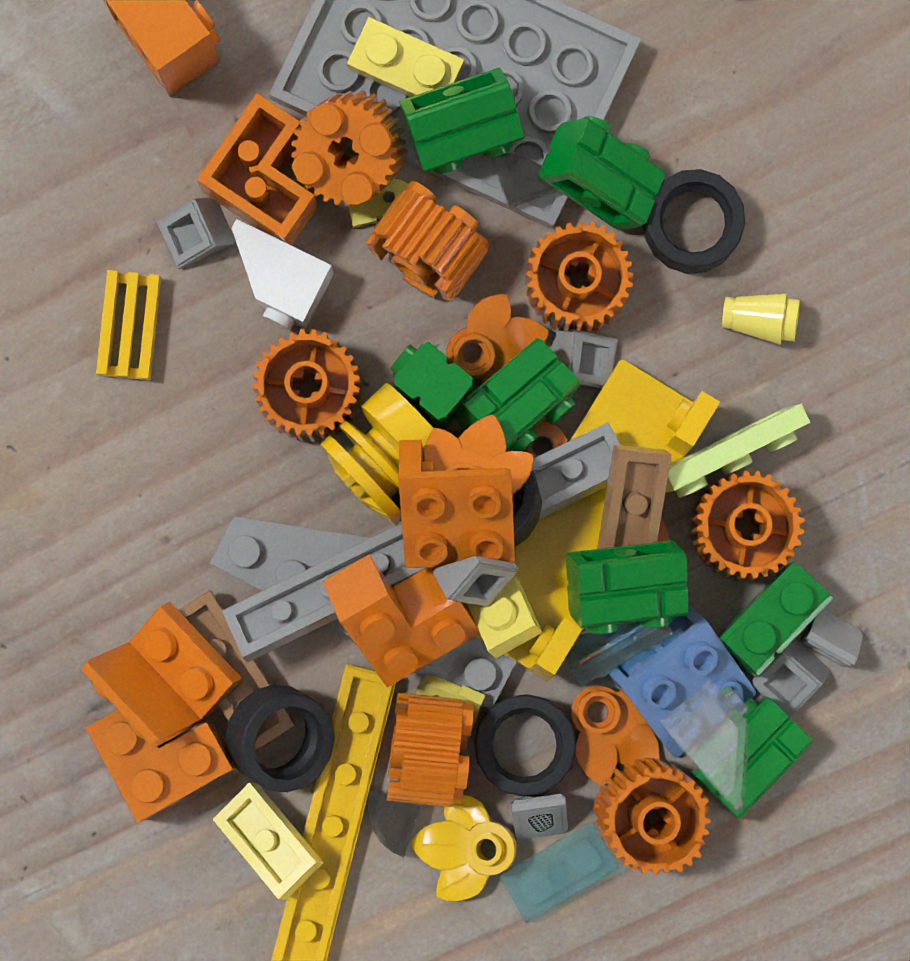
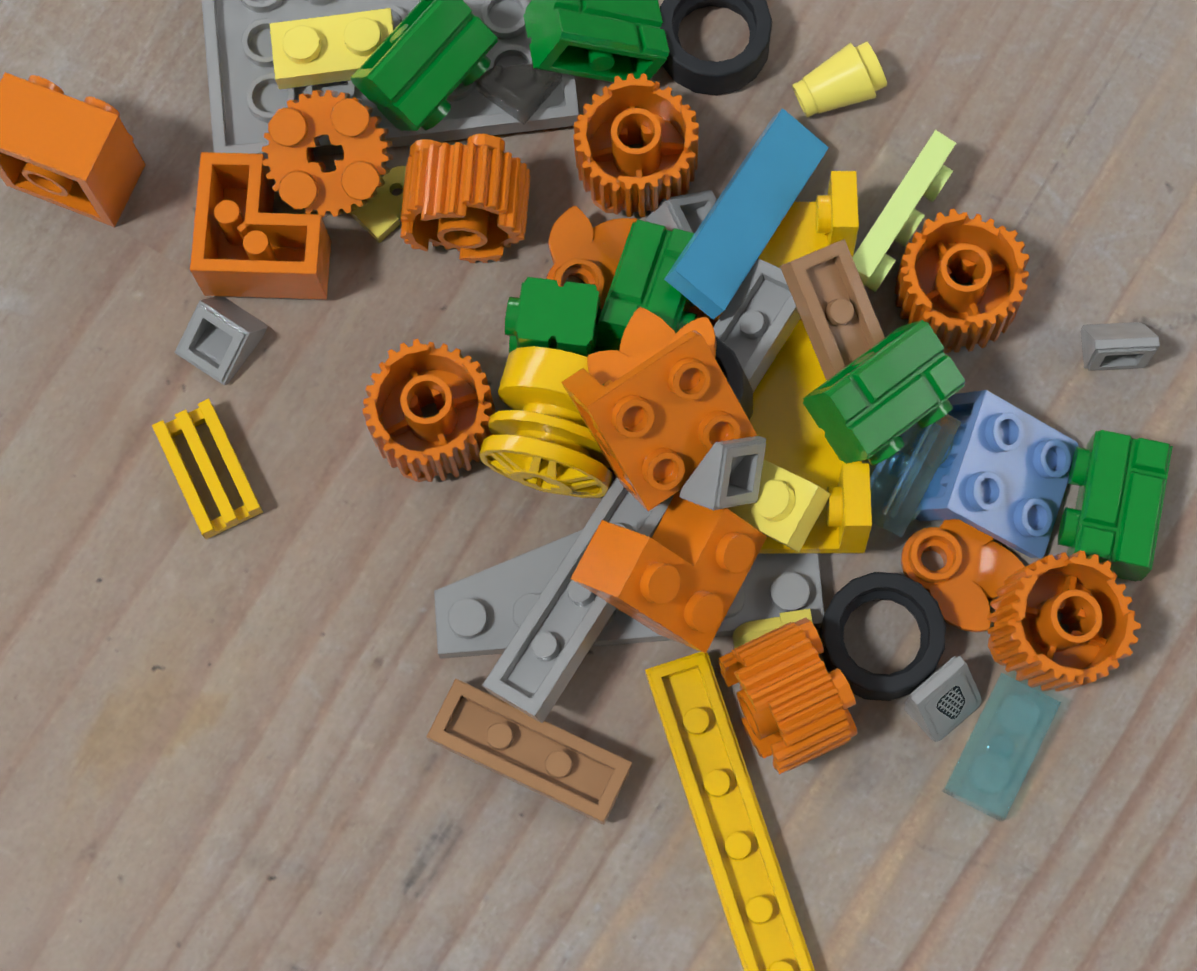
camera: 25 degrees left, 10 degrees down
(159, 775) = (515, 904): orange brick -> none
(163, 677) = (464, 789): orange bracket -> none
(268, 841) = (680, 901): light yellow plate -> none
(282, 277) = (333, 322): white slope -> none
(311, 756) = (666, 768): black tyre -> none
(392, 821) = (796, 801): clear smoke tile -> none
(456, 849) = (882, 790): yellow plate -> none
(624, 382) = (746, 214): none -> dark azure tile
(714, 738) = (1073, 499): clear slope -> none
(774, 618) = (1049, 351): green brick -> none
(791, 677) = (1099, 404): light grey slope -> none

